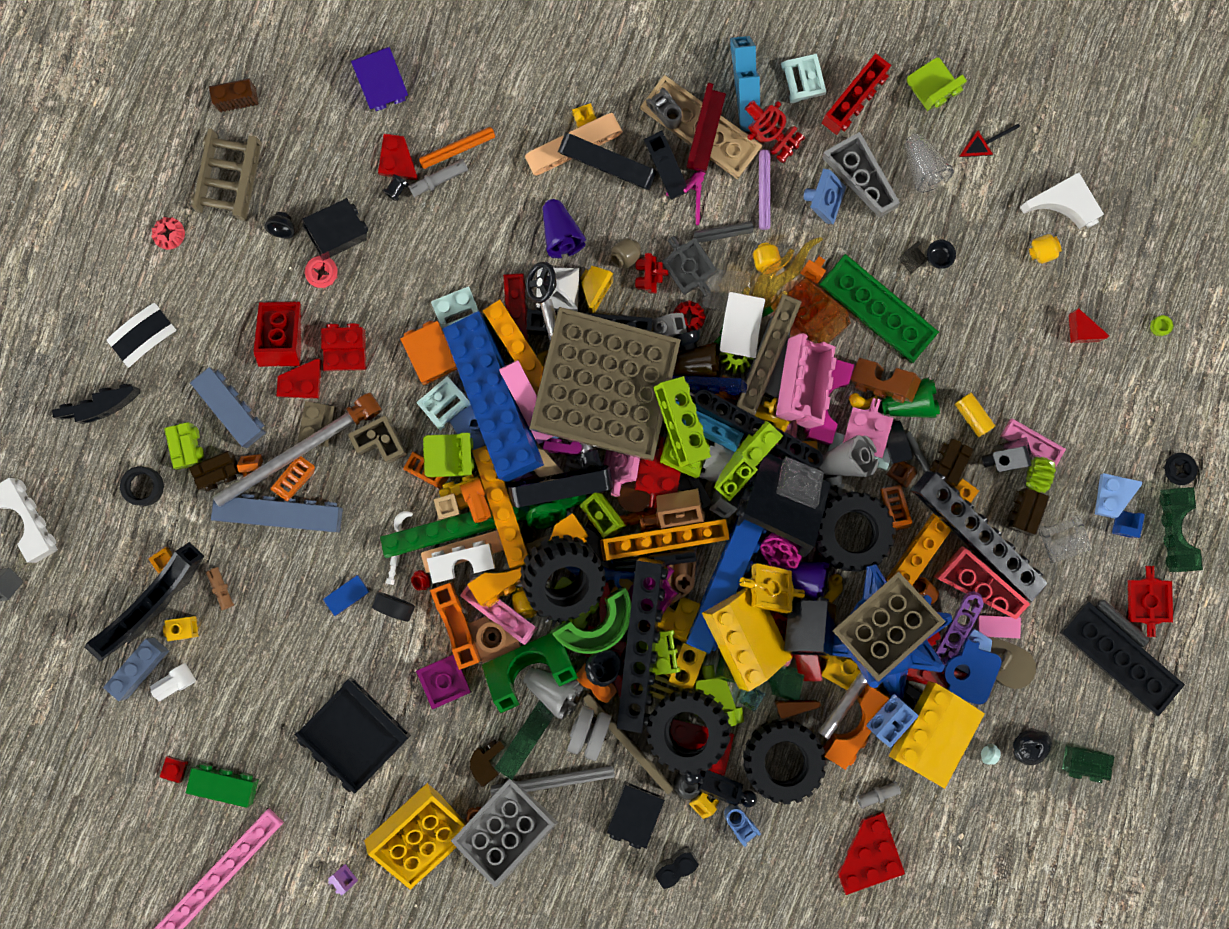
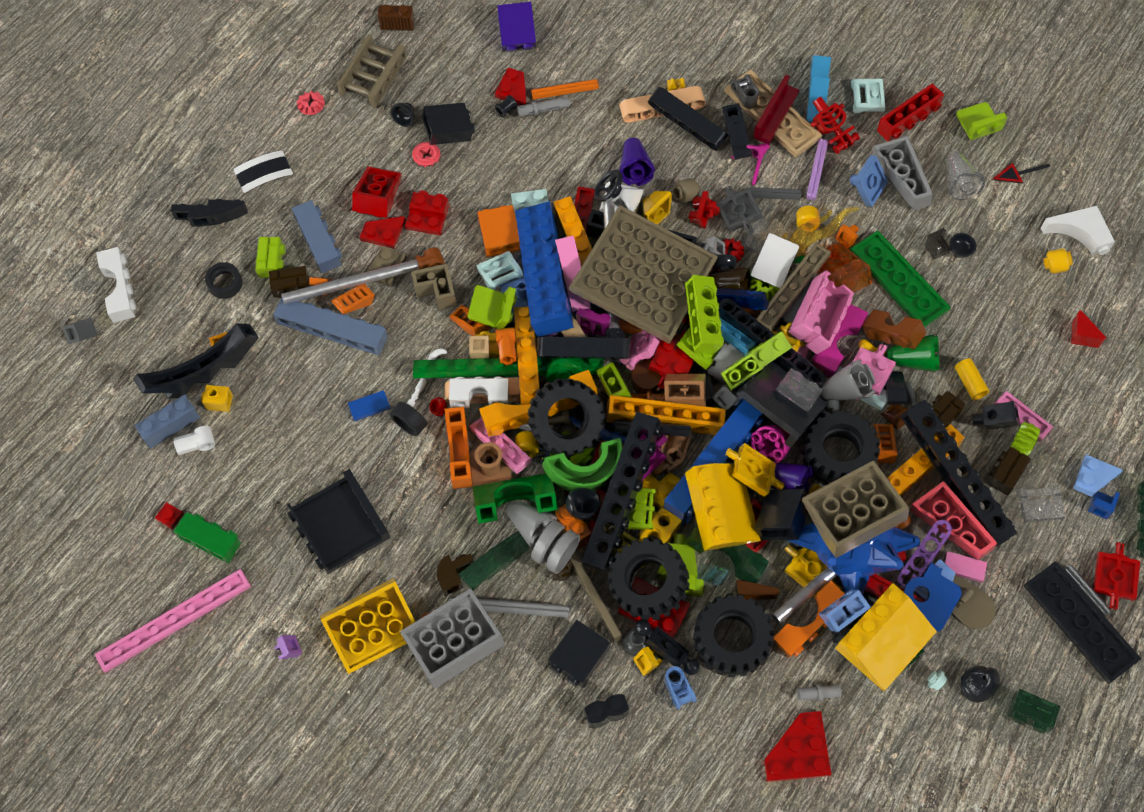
camera: 20 degrees right, 20 degrees down
(219, 588) = (261, 375): medium nougat pin -> none
(443, 682) = (433, 495): magenta plate -> none
(809, 667) = (775, 553): red slope -> none

